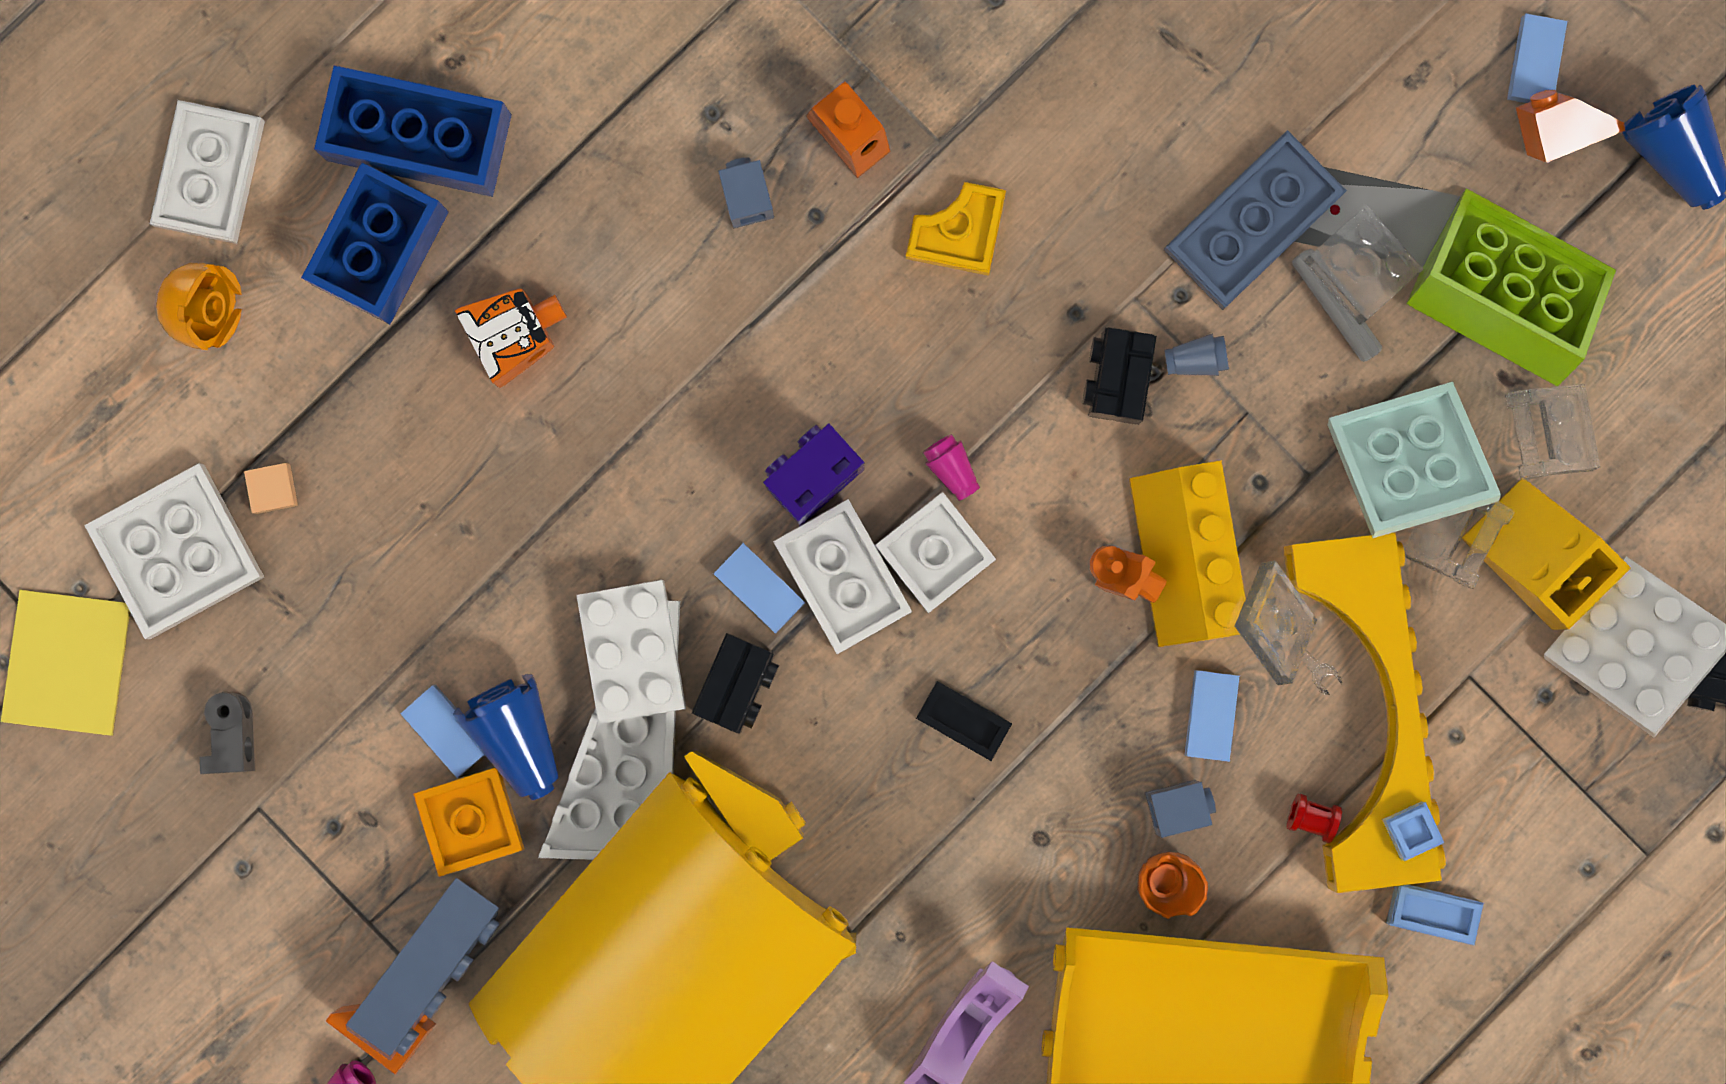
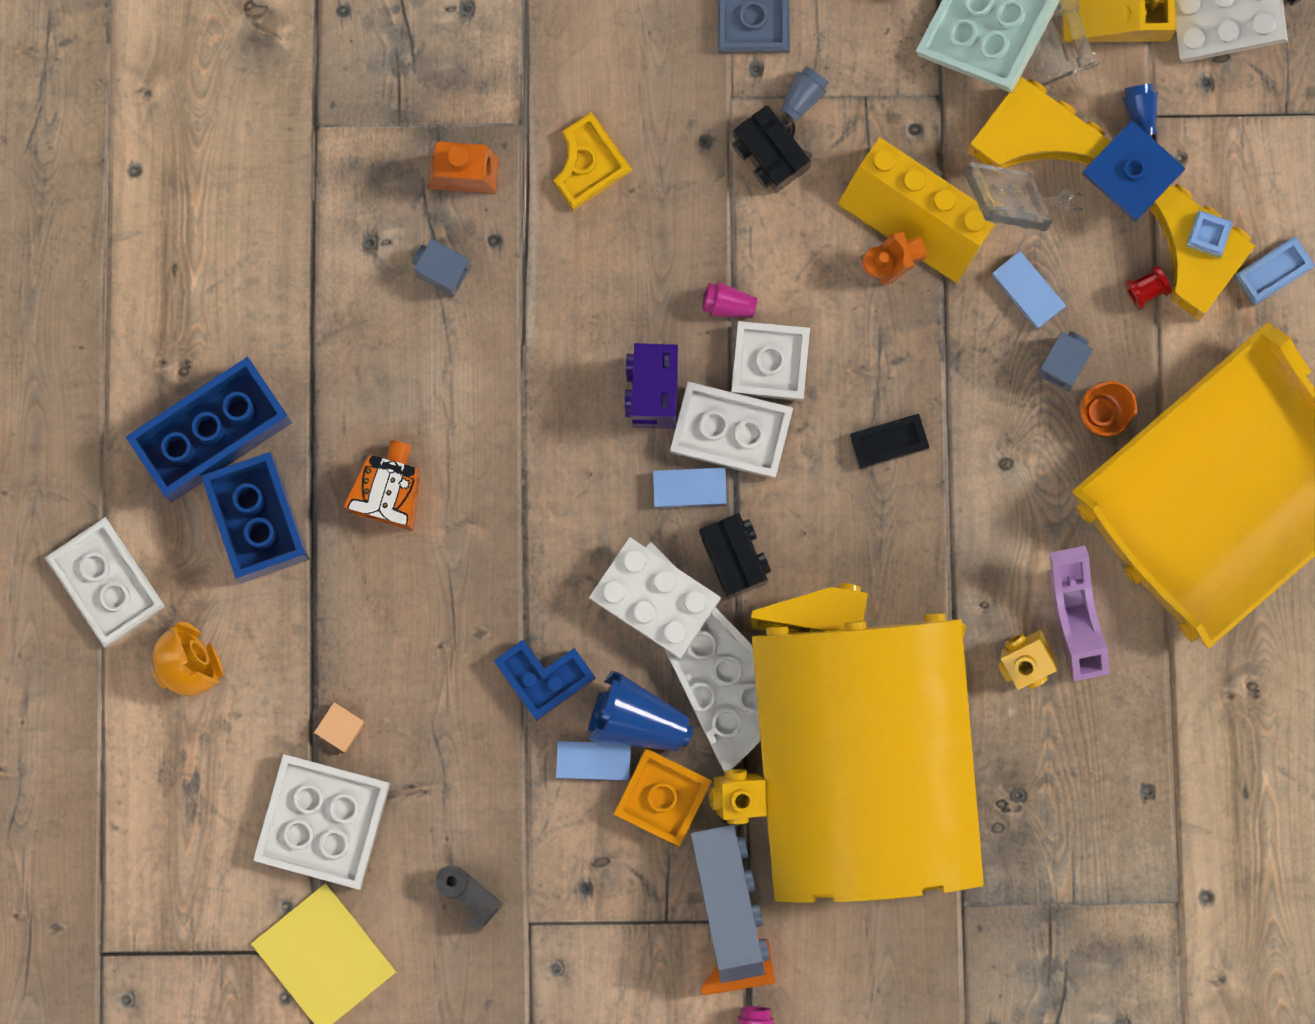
camera: 40 degrees left, 5 degrees down
(466, 629) = (540, 687): none -> blue plate
(527, 888) = (738, 796): none -> yellow brick
(884, 1025) = (1039, 660): none -> yellow brick
(1405, 711) = (1133, 171): none -> blue plate
(1468, 662) = (1142, 106): none -> blue cone

